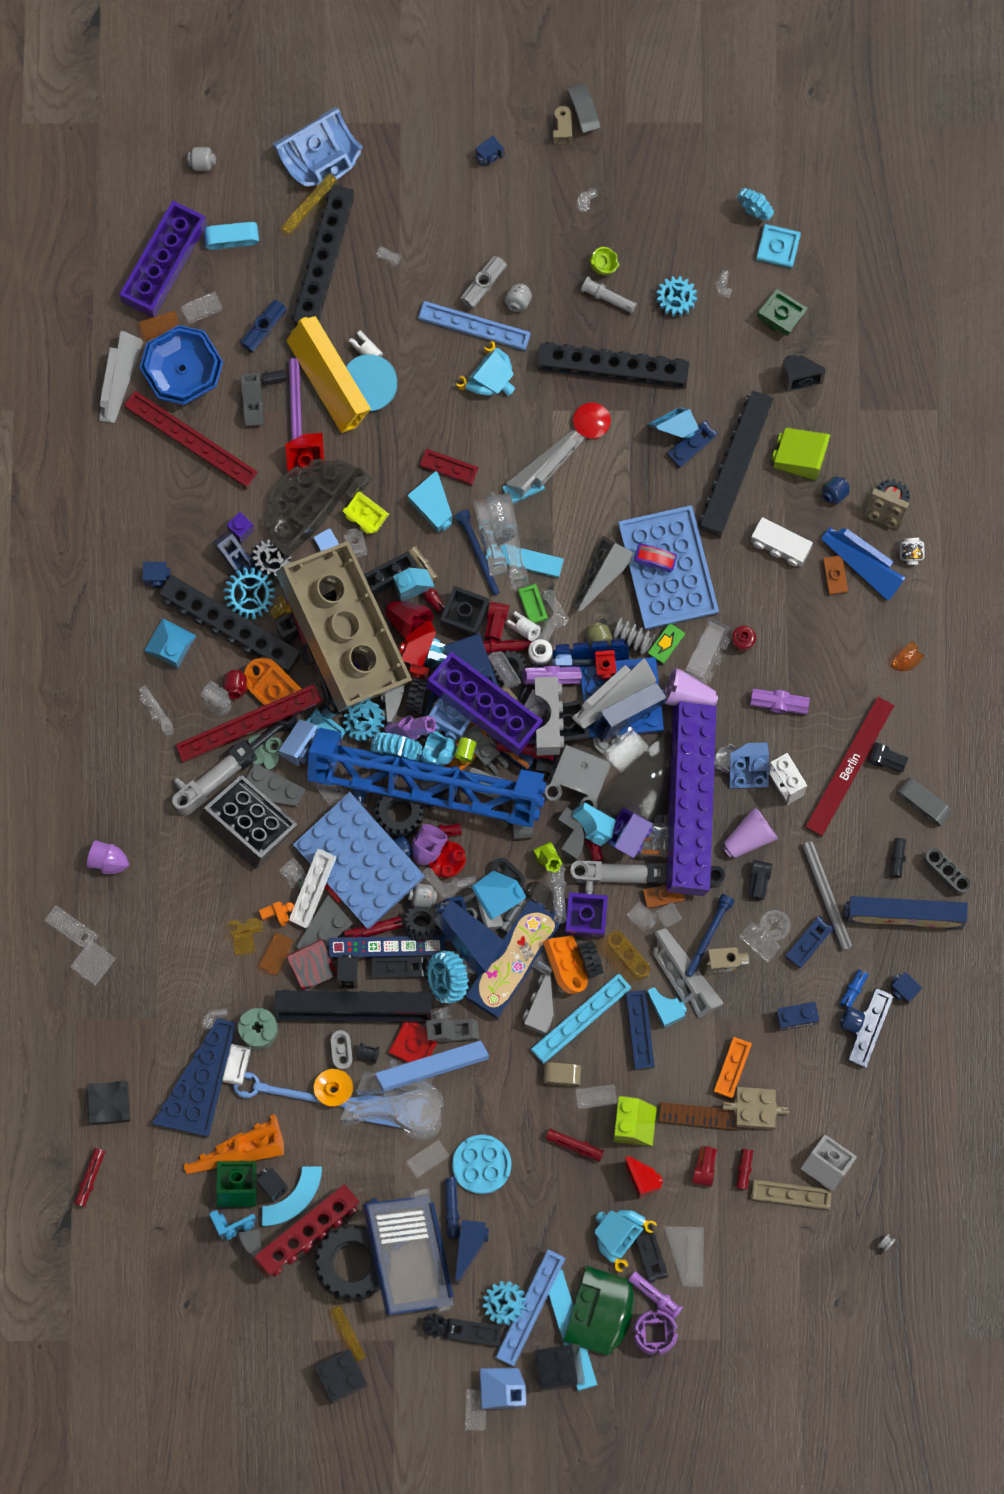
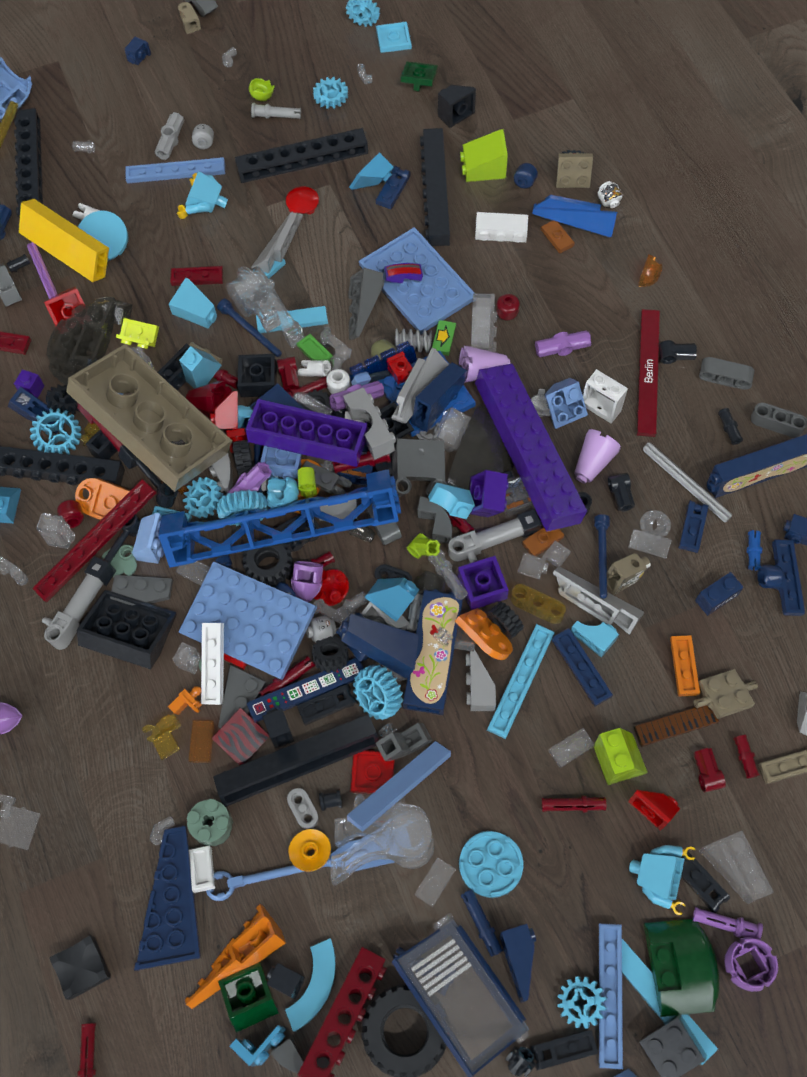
camera: 20 degrees left, 10 degrees down
(562, 1074) = (528, 740): dark tan beam -> none

